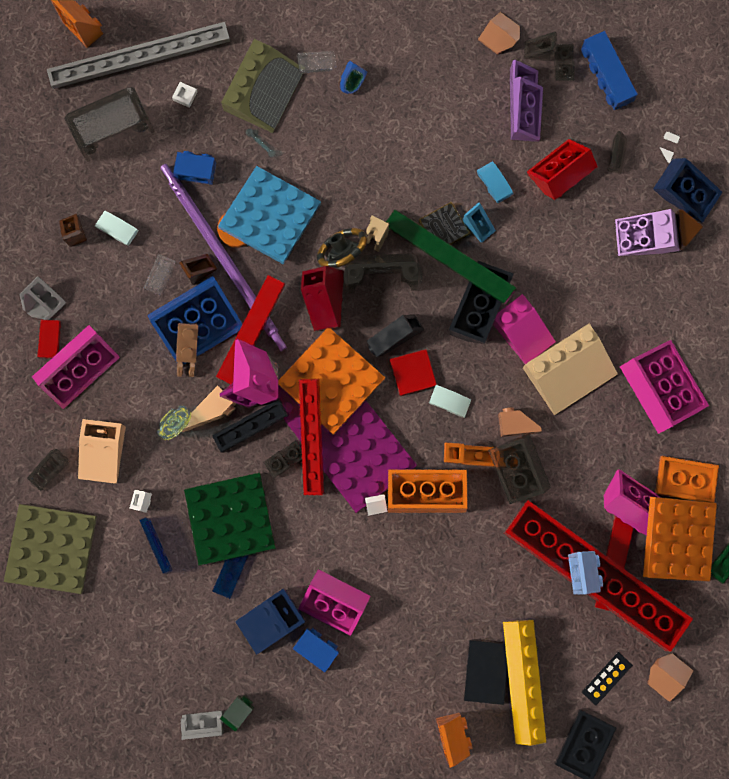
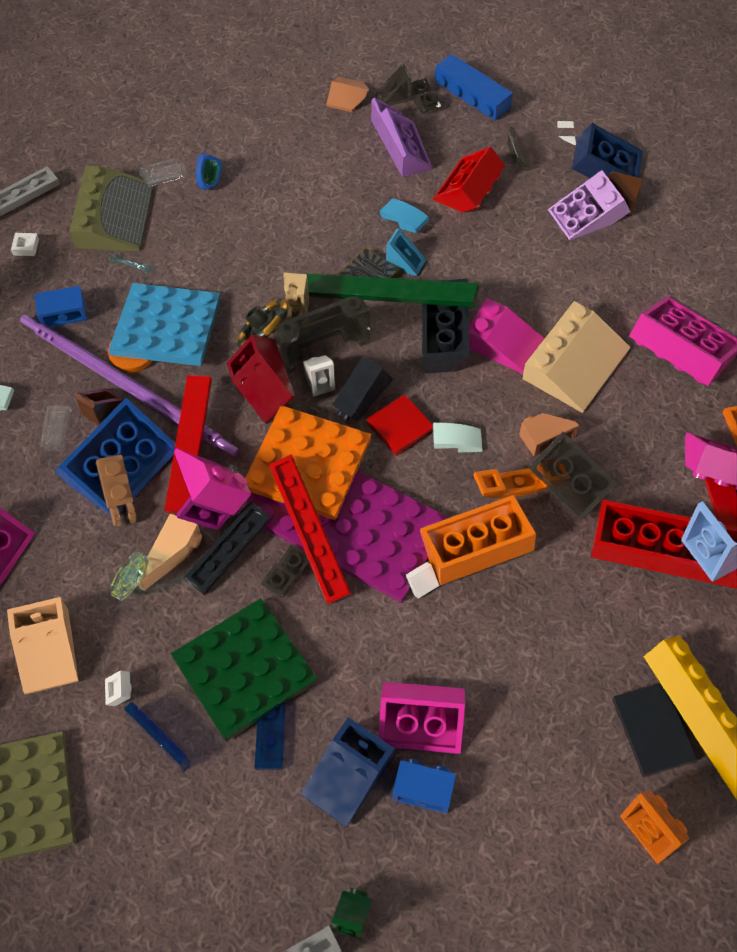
camera: 20 degrees left, 20 degrees down
(368, 307) = (319, 375): none -> white slope

